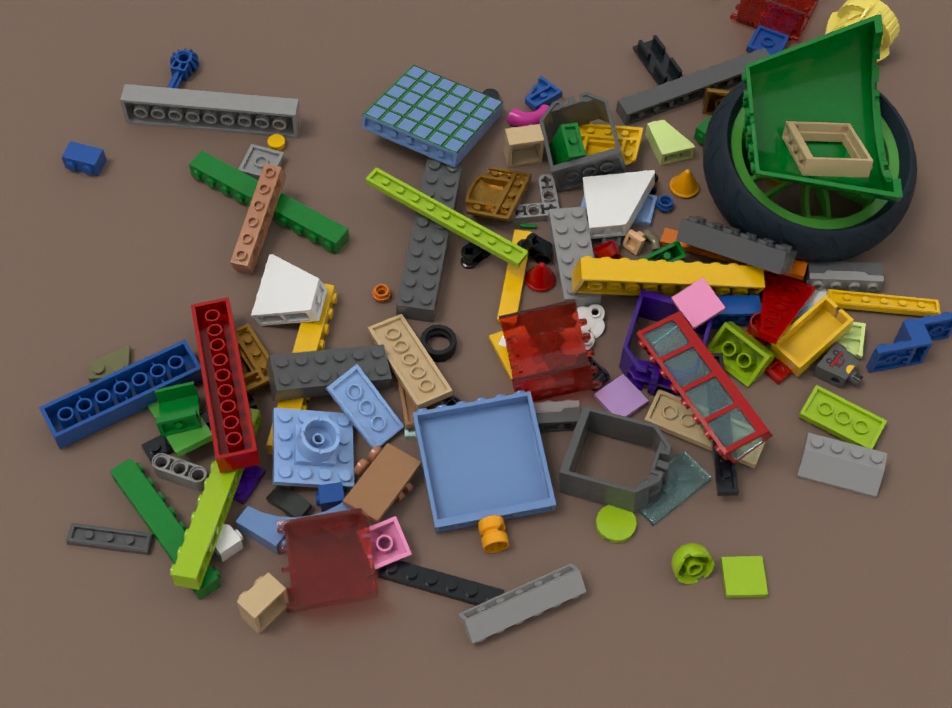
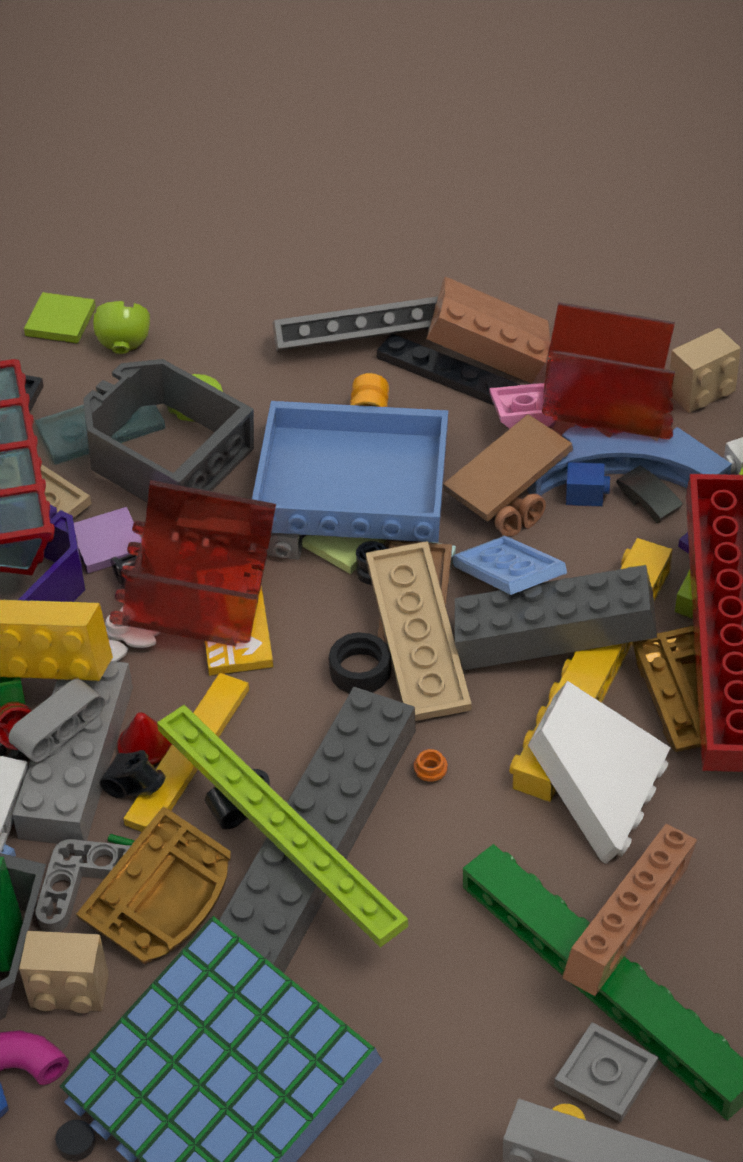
camera: 160 degrees left, 10 degrees down
(312, 448) = (604, 526): light blue piece -> none
(424, 608) = (490, 330): none -> nougat slope
(582, 243) = (56, 720): none -> light grey beam

